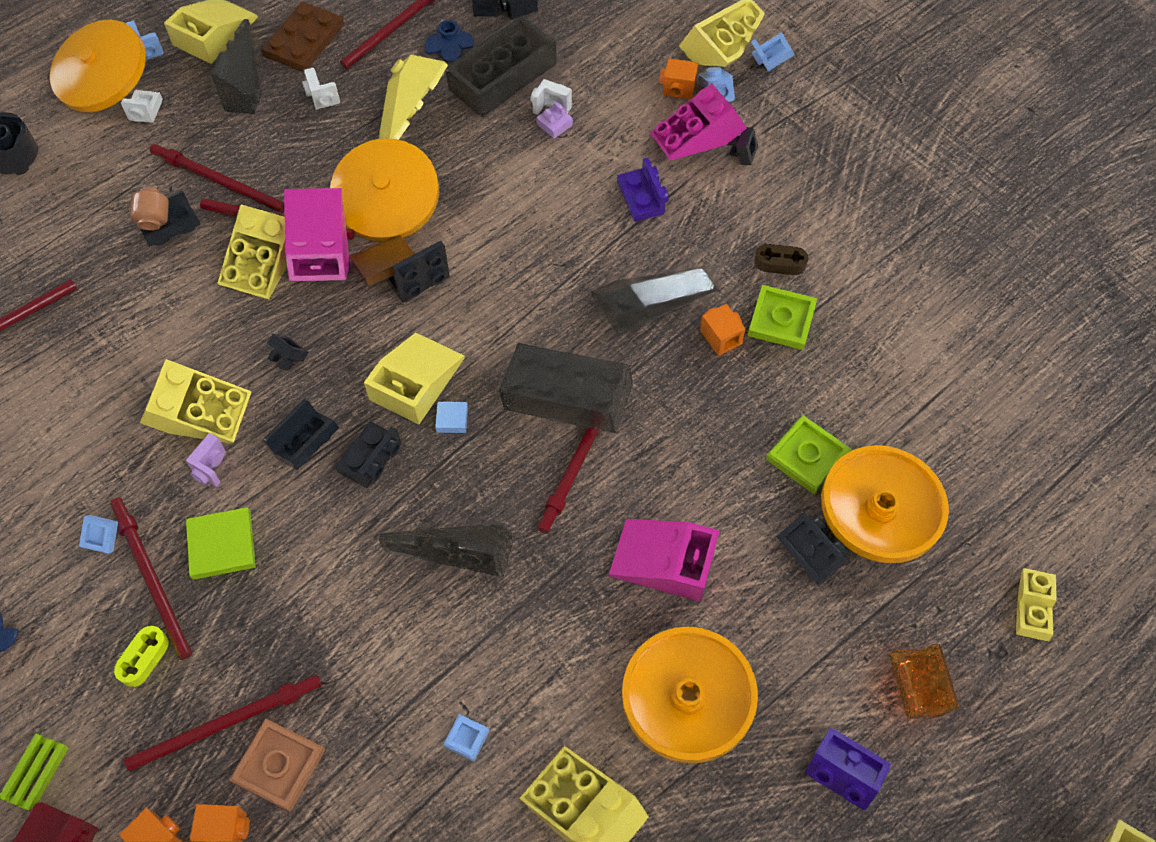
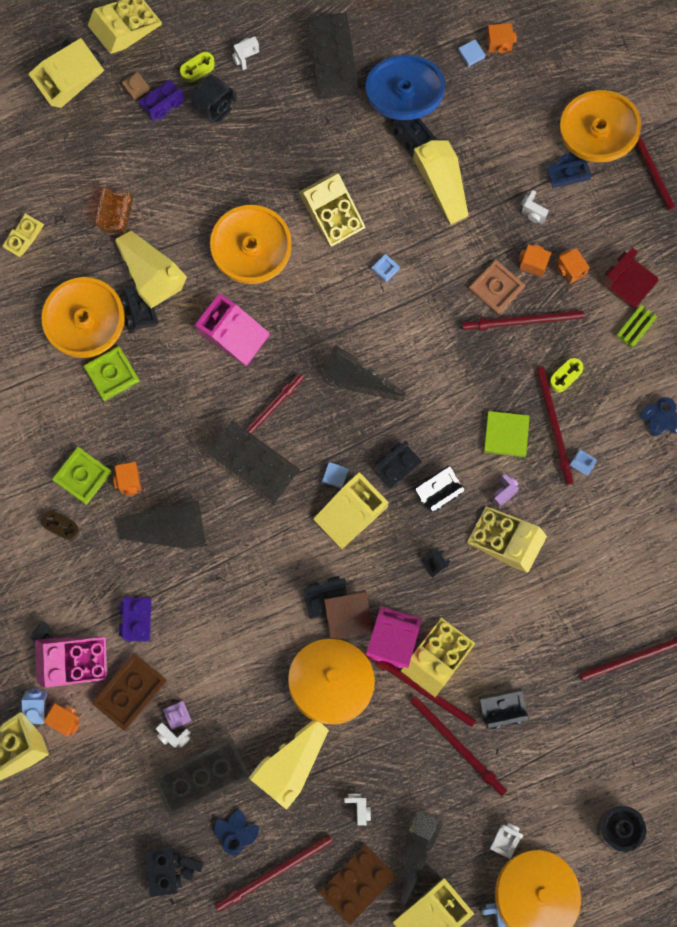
camera: 165 degrees left, 15 degrees up
(149, 208) = (513, 708): nougat head -> none
(617, 123) = (129, 692): none -> reddish brown plate
(825, 603) = (152, 272): none -> light yellow wedge
(848, 769) = (178, 182): dark purple bracket -> none

